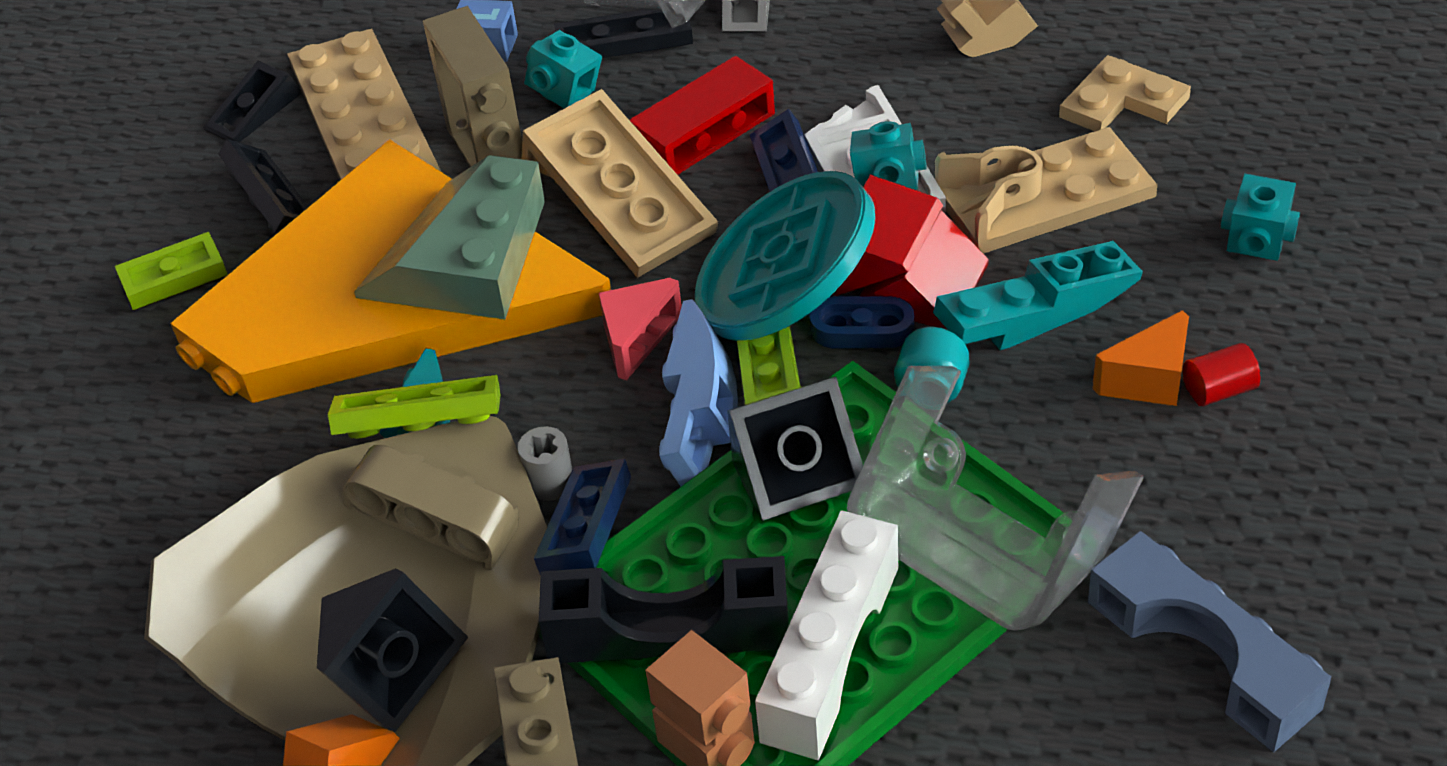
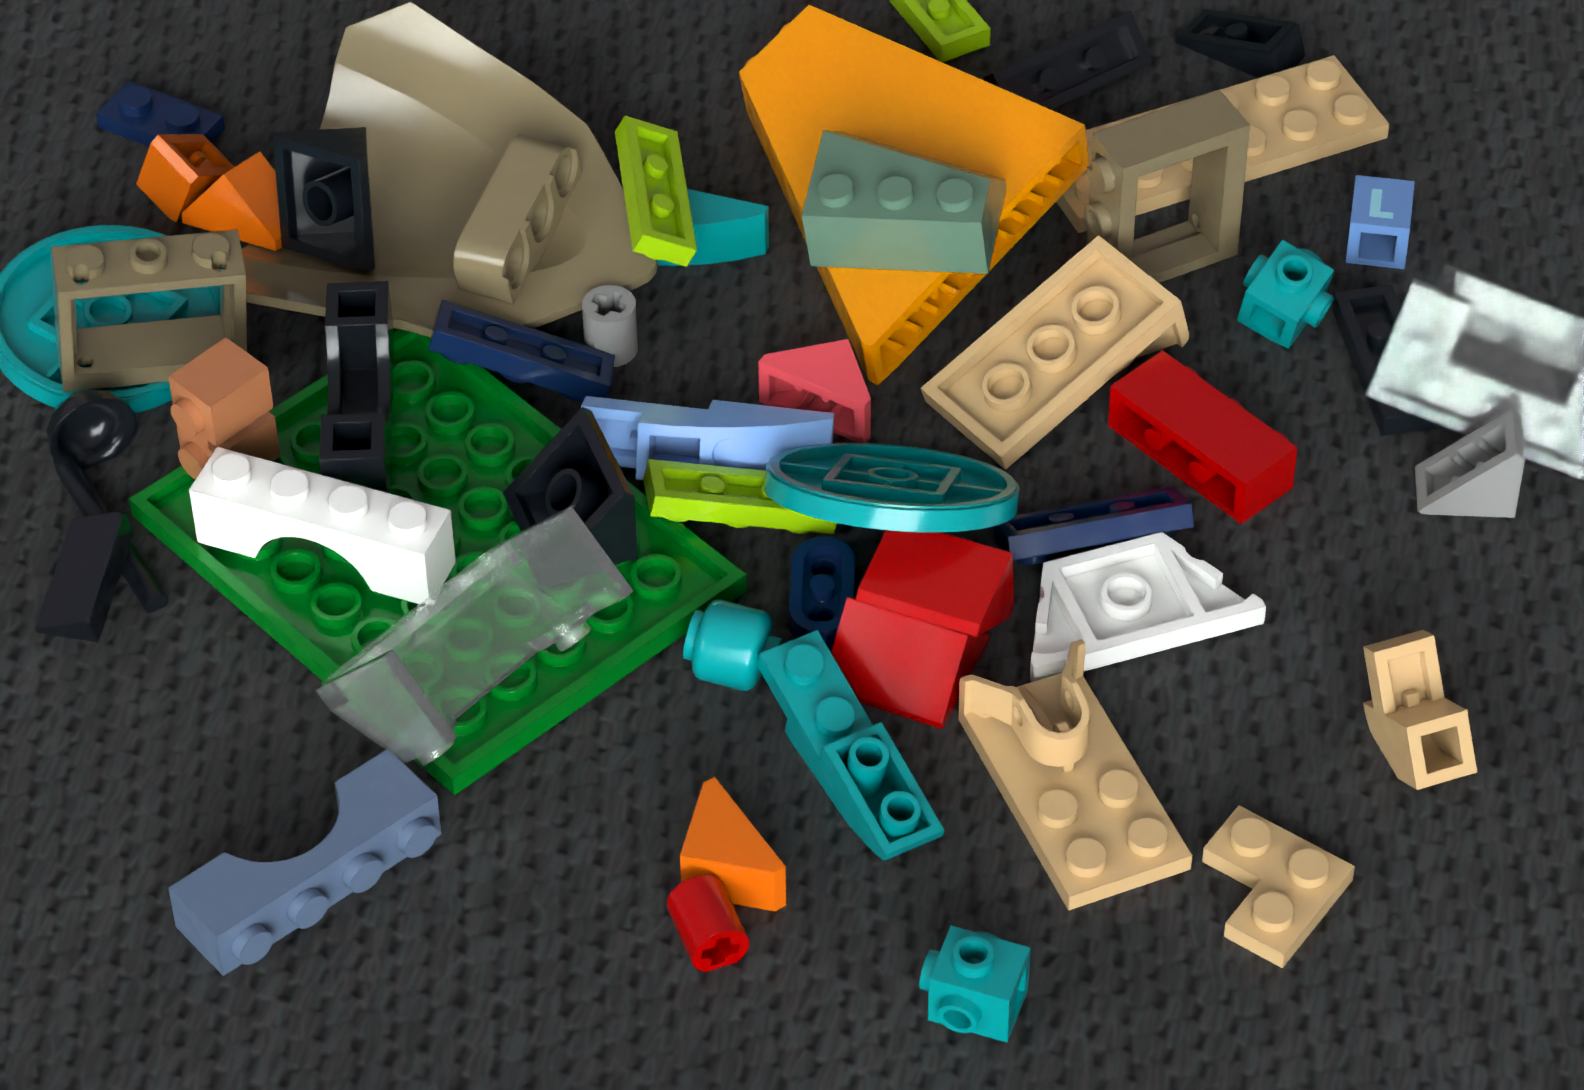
camera: 85 degrees right, 0 degrees up
(887, 153) = (1056, 578): teal brick -> none

